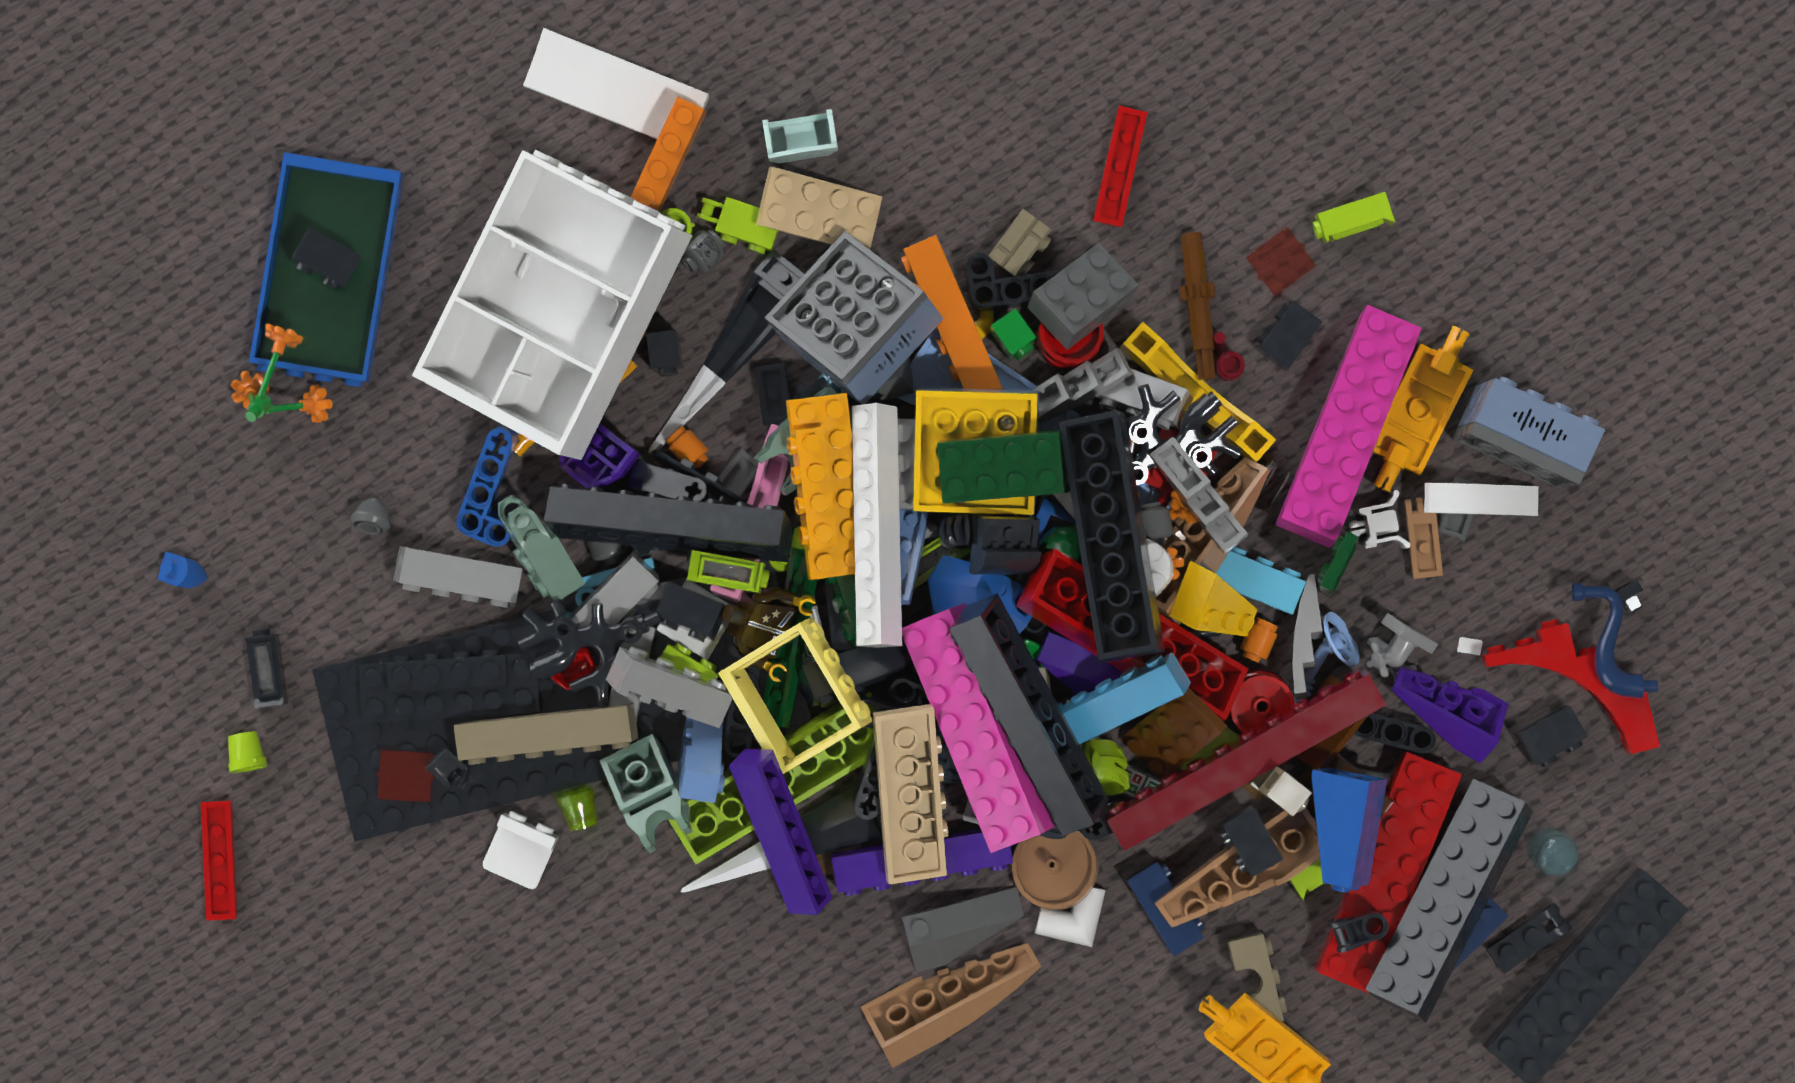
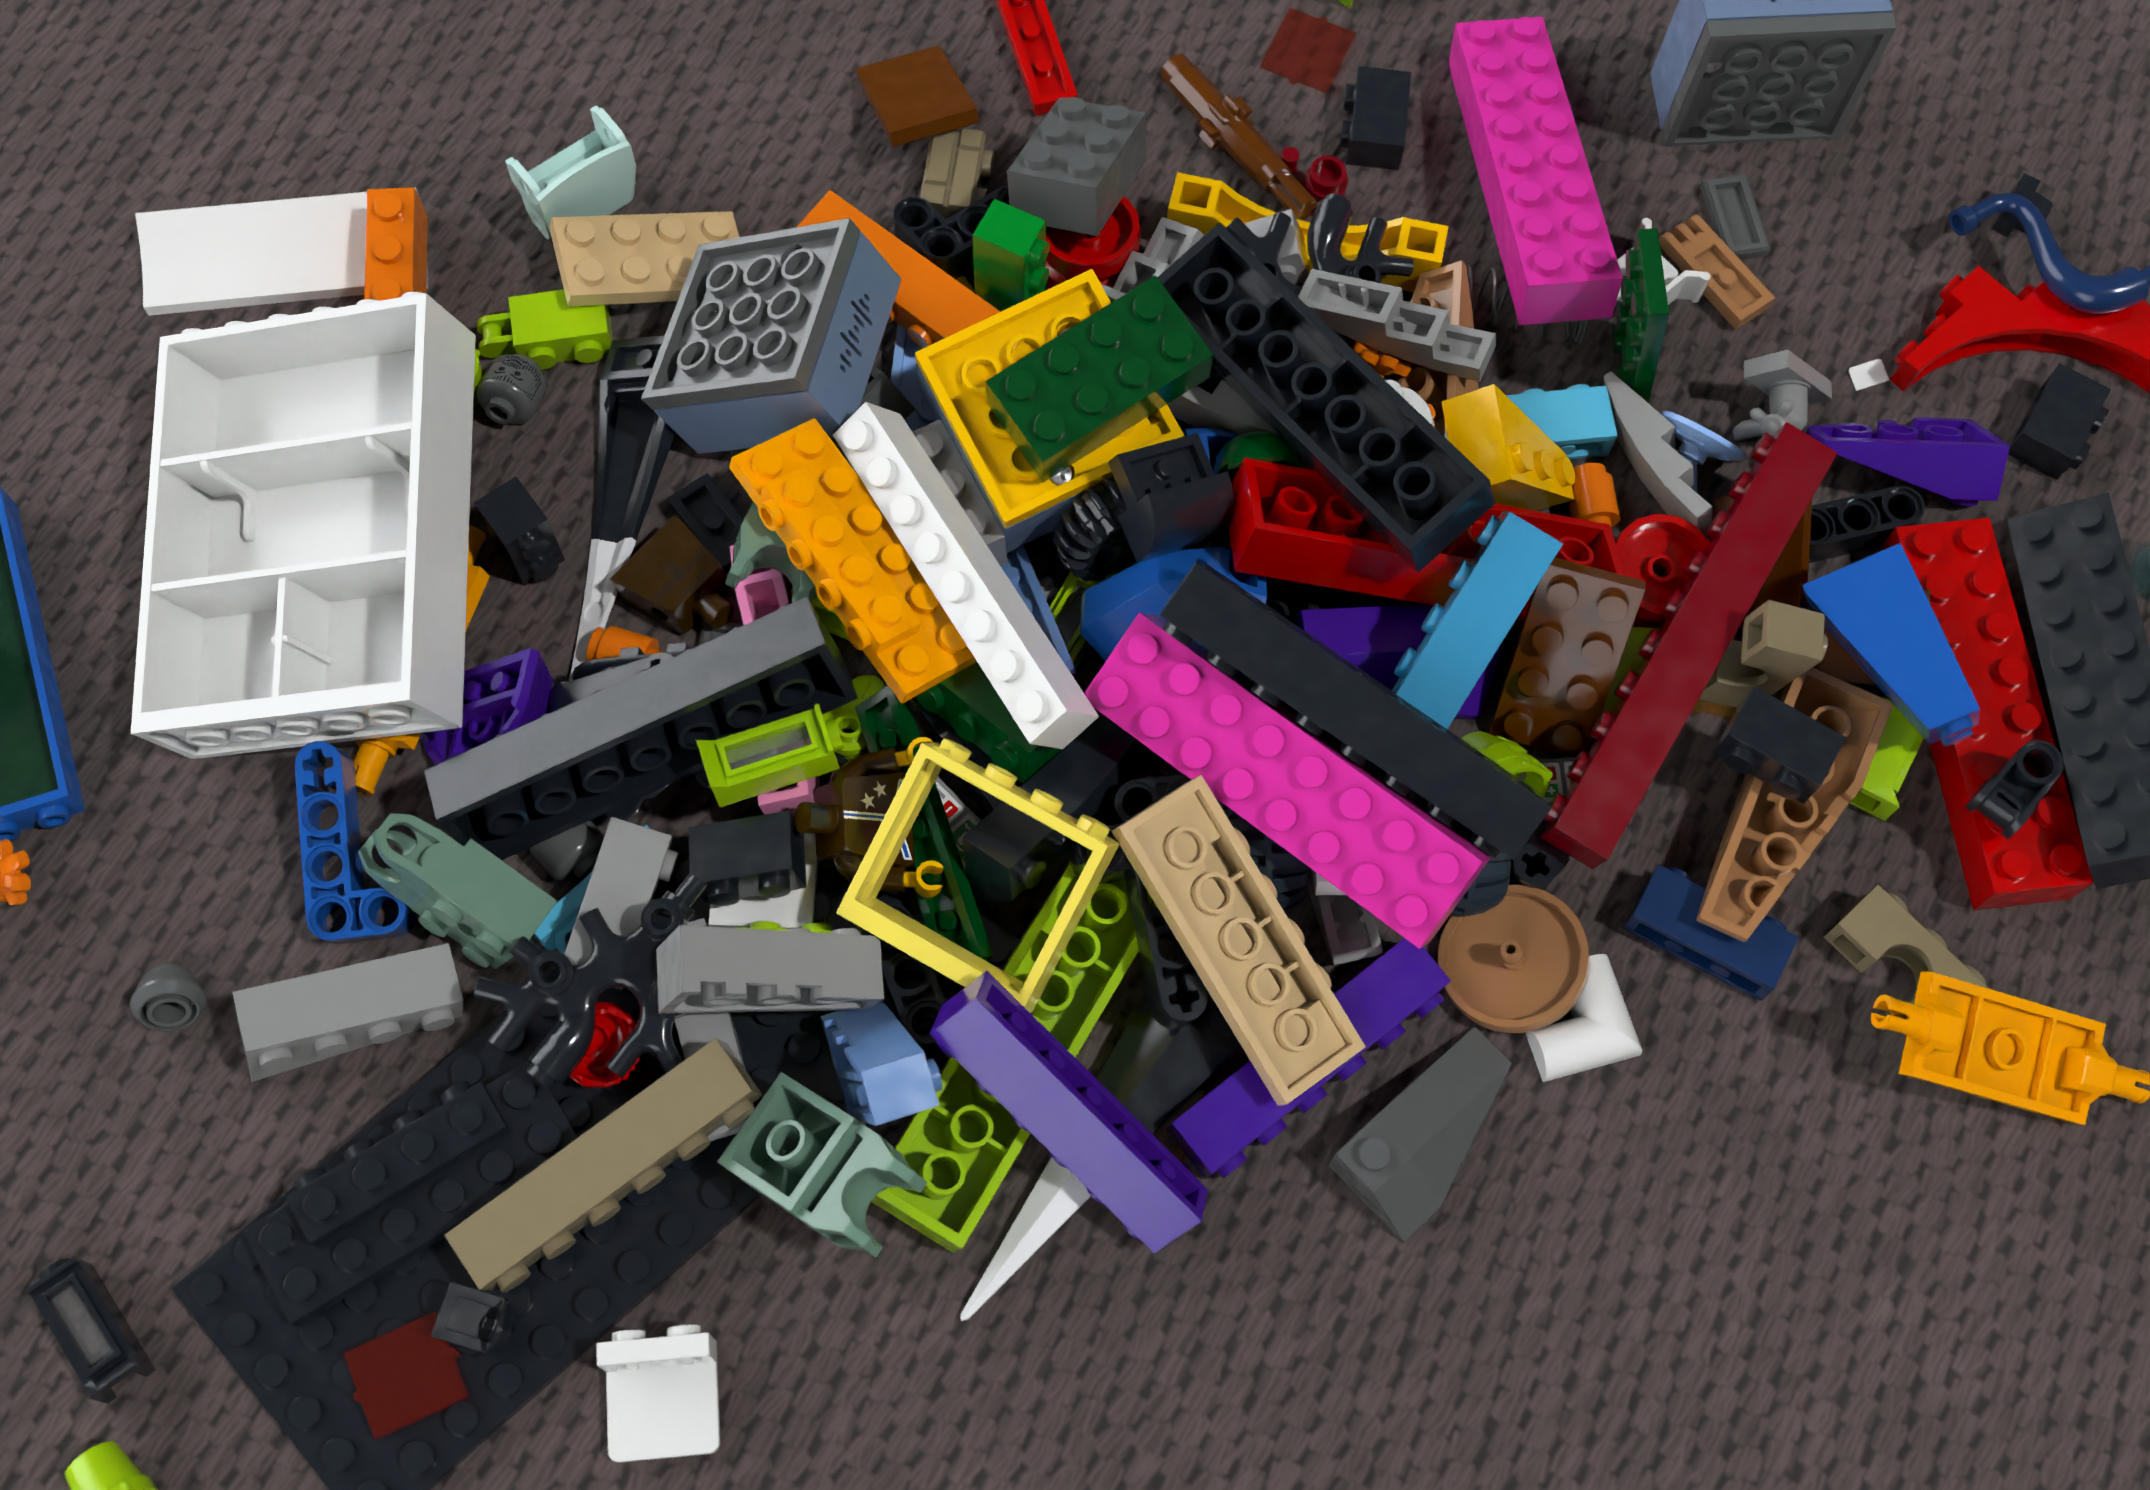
camera: 35 degrees left, 20 degrees down
(578, 808) = (724, 1272): clear neon green piece -> none
(736, 420) = (675, 581): none -> dark brown torso
(936, 1008) = (1465, 1288): medium nougat wedge -> none
(1026, 179) = (917, 96): none -> reddish brown tile
(1421, 408) = (1611, 118): light orange plate -> none
(1481, 499) = (1761, 176): white slope -> none

